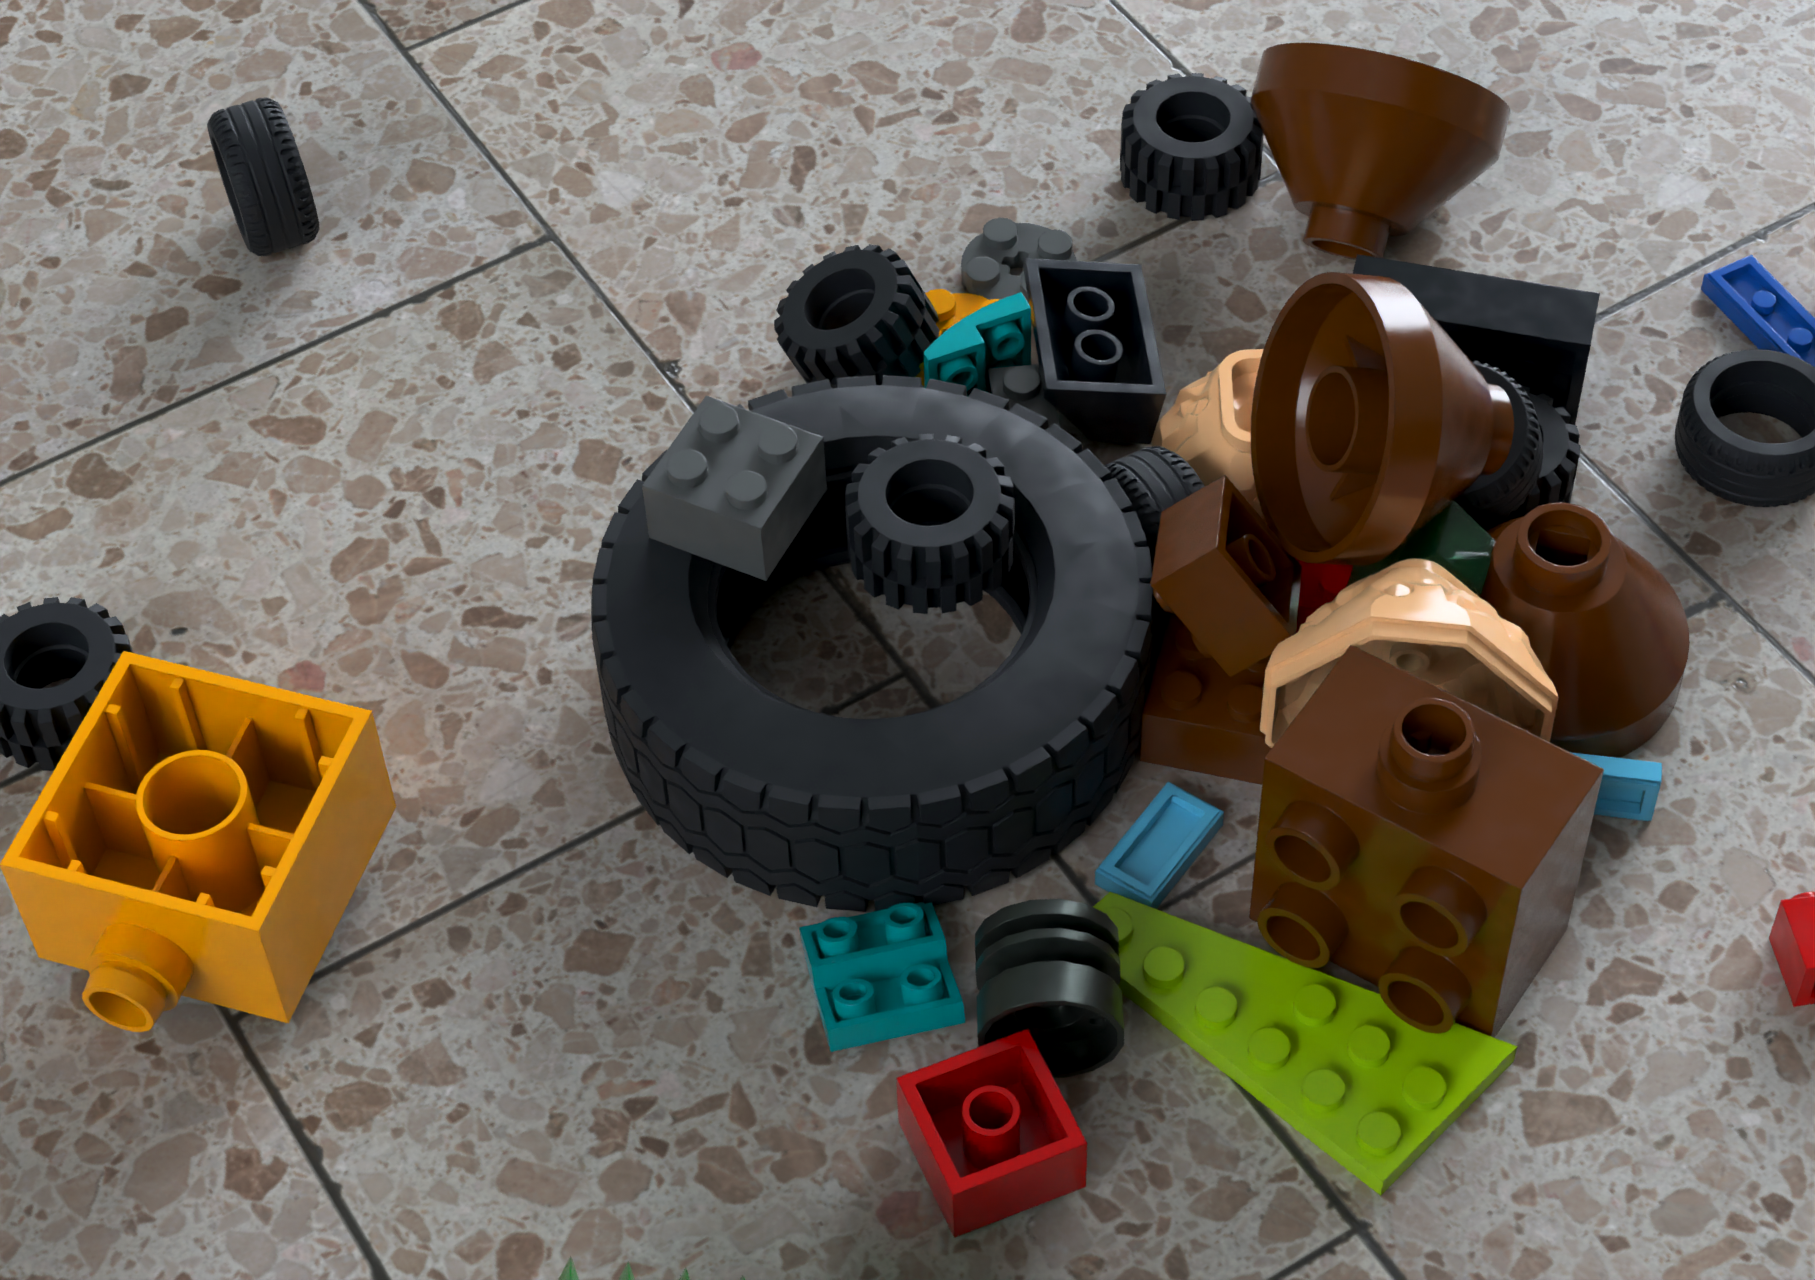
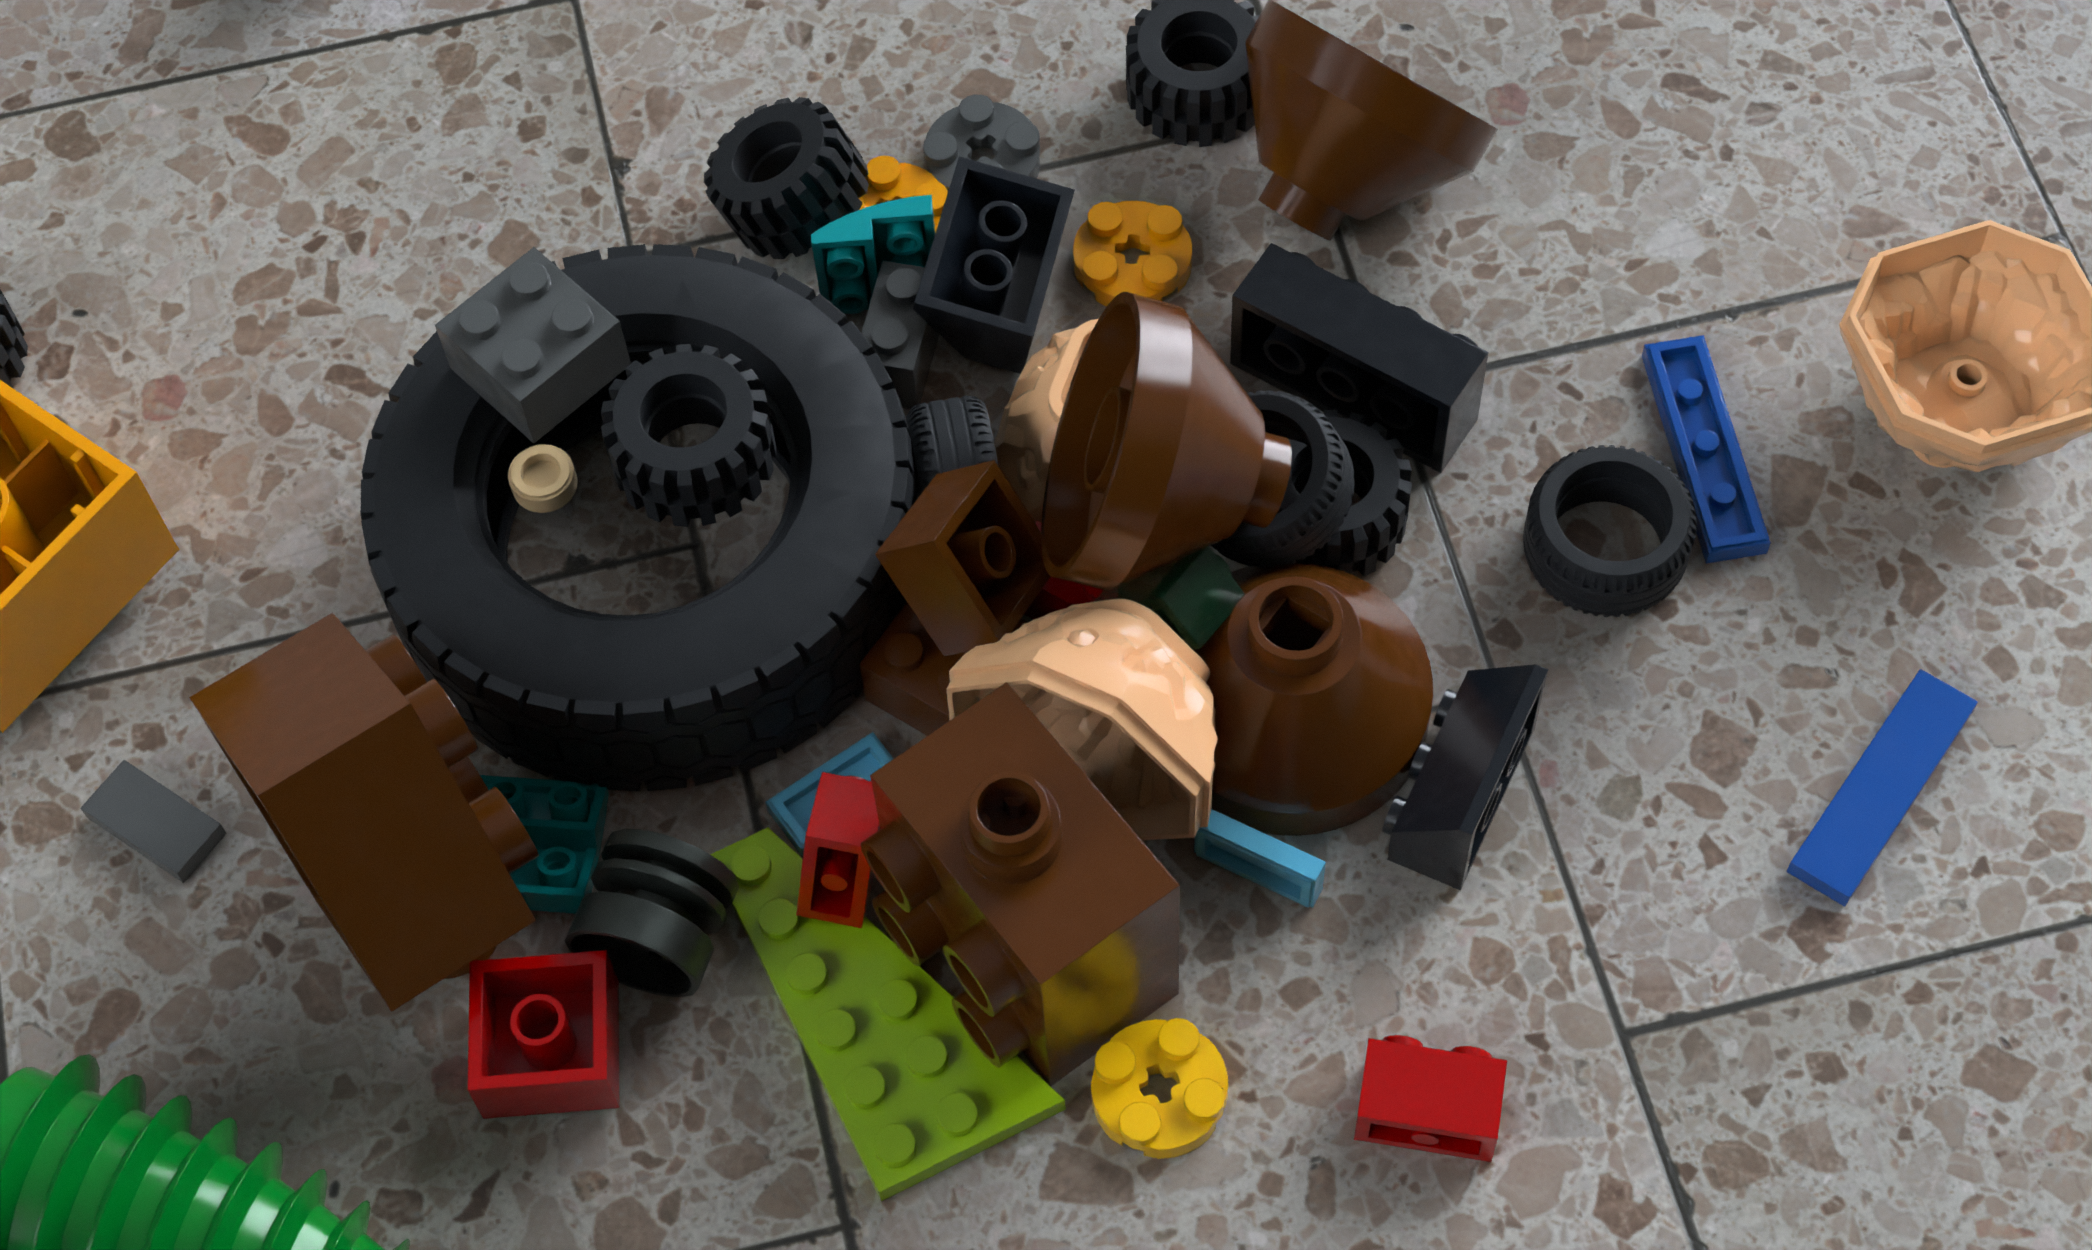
camera: 20 degrees right, 10 degrees up
(480, 1064) = (153, 820): none -> dark grey tile
(756, 945) = (375, 803): none -> reddish brown brick
(794, 605) = (542, 478): none -> tan tile
(1211, 293) = (1129, 225): none -> light orange plate
(1213, 875) = (834, 870): none -> red brick
(1602, 977) = (1141, 1121): none -> yellow plate
(1744, 655) = (1464, 771): none -> black slope

